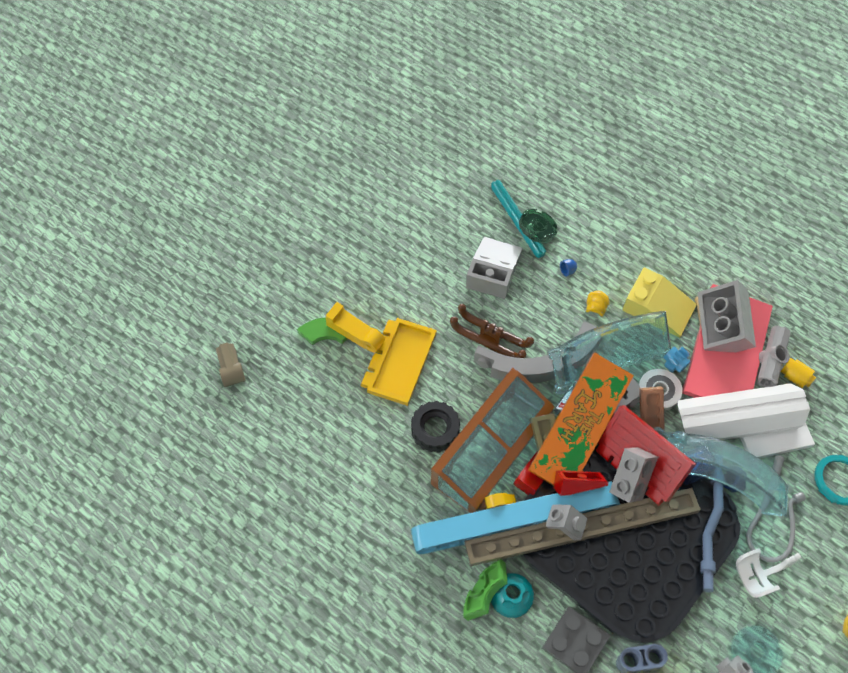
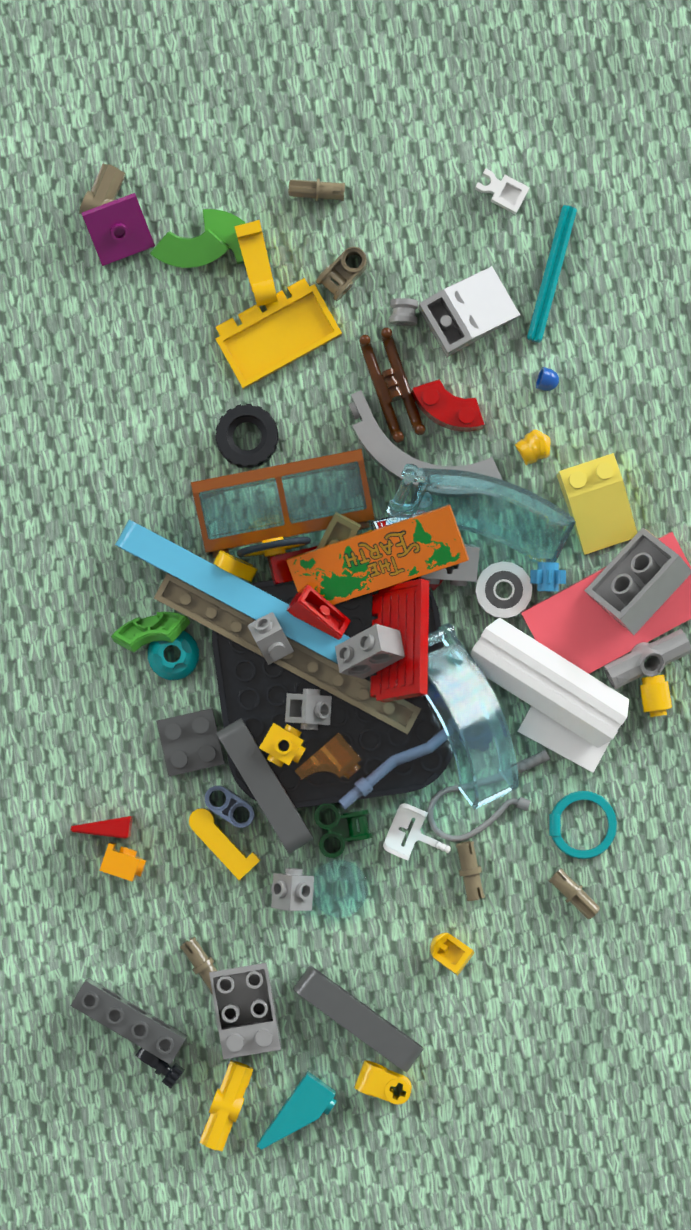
camera: 45 degrees right, 25 degrees up
(255, 374) = (118, 229): none -> magenta plate
(309, 356) = (189, 251): none -> bright green tile
(353, 272) = (316, 189): none -> dark tan axle
(407, 300) = (342, 274): none -> dark tan piece
(455, 199) = (506, 193): none -> white plate
(460, 292) = (403, 312): none -> light grey wheel
(514, 469) = (273, 546): none -> black wheel
(534, 319) = (447, 409): none -> red brick
(538, 226) = (561, 304): clear green tile -> none
(630, 546) = (314, 709): none -> light grey brick
(637, 583) = (275, 736): none -> yellow brick
(652, 406) = (467, 603): nougat plate -> none
(652, 622) = (264, 785): none -> dark grey beam
(673, 563) = (333, 757): none -> clear orange arch
(720, 607) = (343, 828): none -> dark green piece
(817, 565) = (470, 871): none -> dark tan pin

